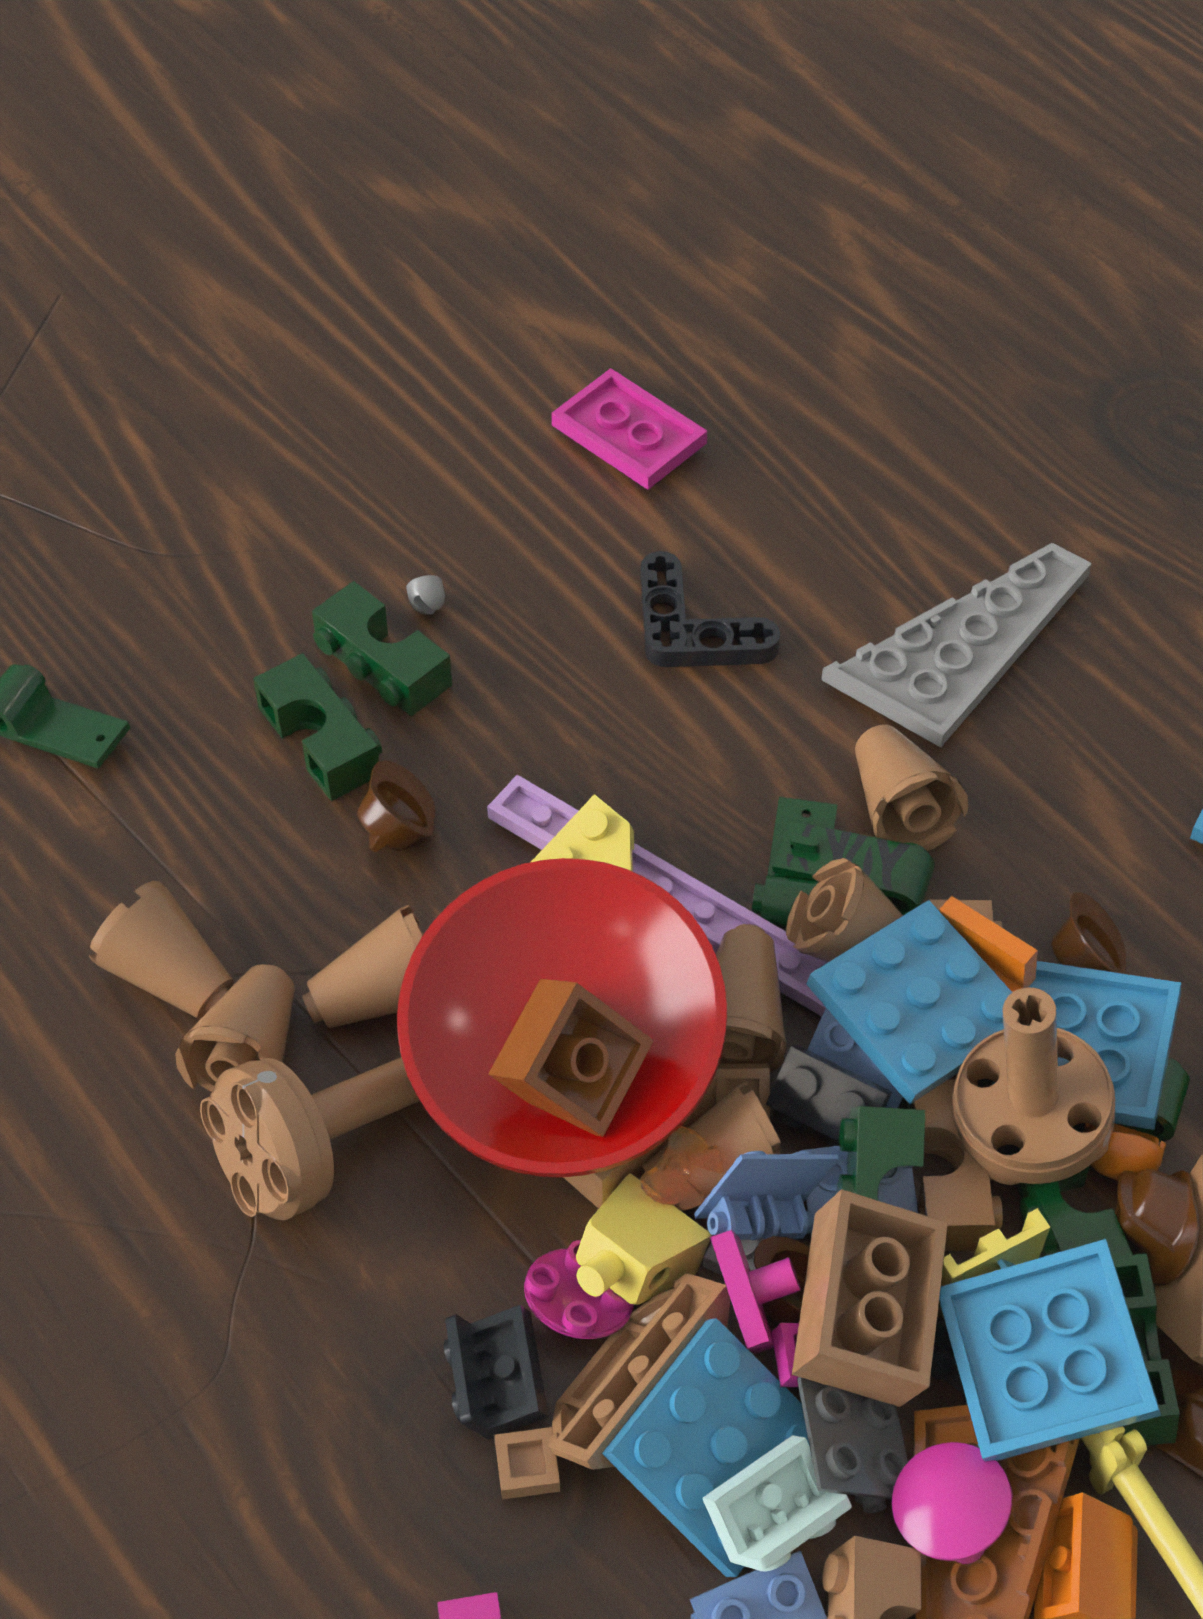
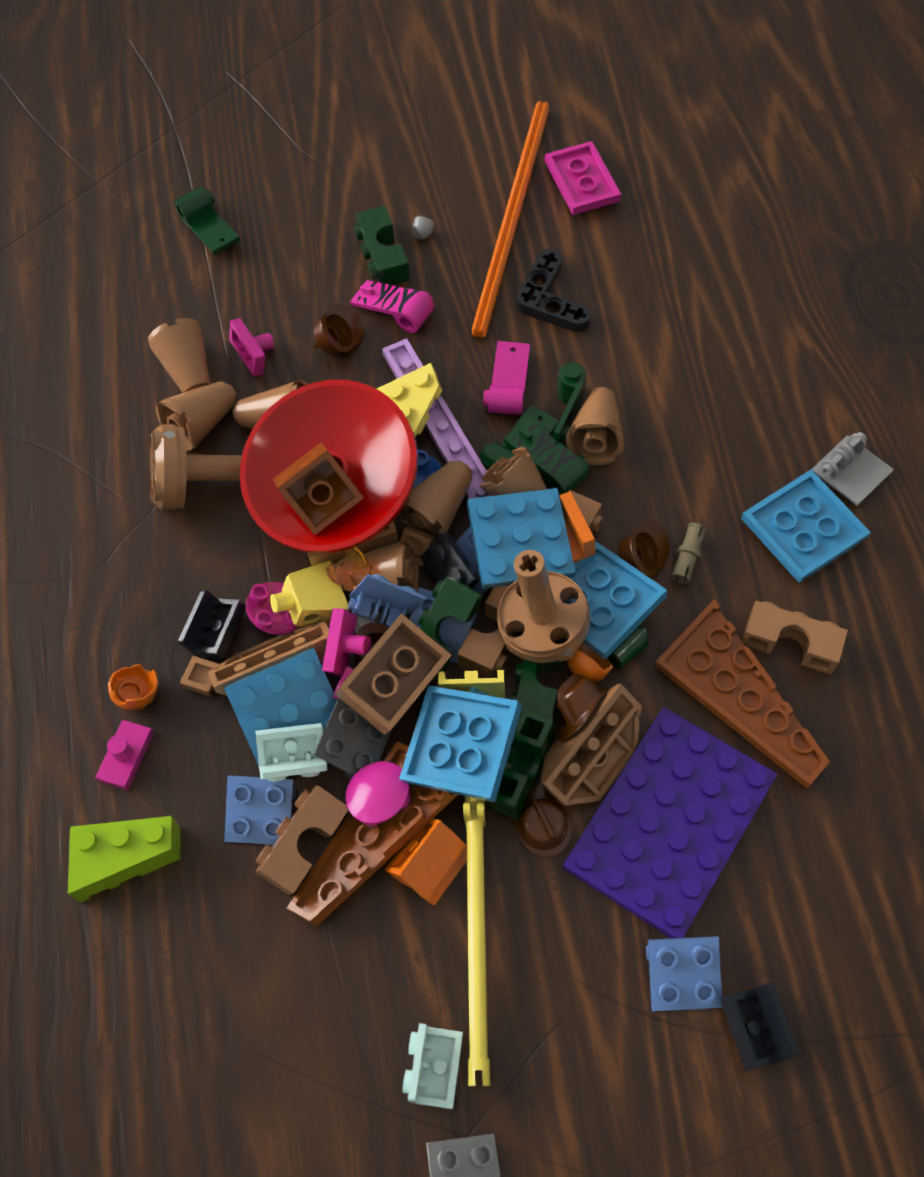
camera: 30 degrees right, 10 degrees up
(260, 894) = (250, 347): none -> dark pink tile
(301, 698) = (326, 258): dark green arch -> none
(427, 1536) = (133, 687): none -> orange hair
(486, 722) = (406, 305): none -> dark pink door
(559, 536) = (510, 221): none -> orange axle
(715, 776) = (508, 380): none -> dark pink door
(826, 753) = (571, 393): none -> dark green door
(957, 651) = (681, 364): light grey wing -> none
(1154, 921) = (688, 553): none -> dark tan pin

